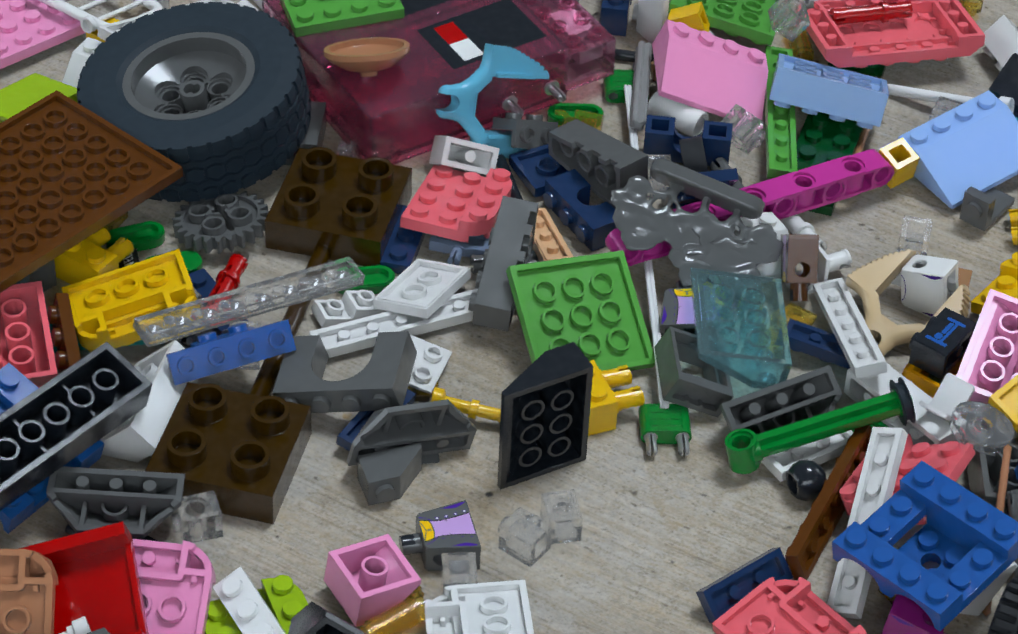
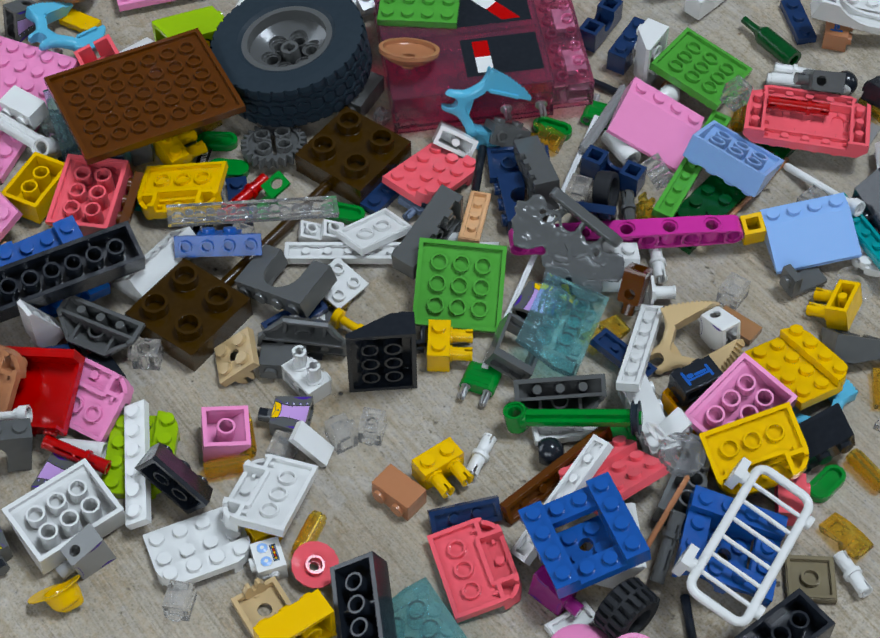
camera: 25 degrees right, 10 degrees up
(32, 516) = (41, 327): none -> white slope
(256, 273) = (271, 193): none -> green bracket
(345, 494) = (245, 360): none -> tan piece
(437, 482) = (306, 376): none -> white brick
(496, 556) = (311, 443): none -> white tile
(644, 583) = (398, 492): none -> nougat brick
(676, 535) = (440, 463): none -> yellow brick
(691, 15) = (660, 78): yellow brick -> none
(720, 511) = (481, 454): none -> white pin
(749, 171) = (644, 207): none -> clear yellow plate

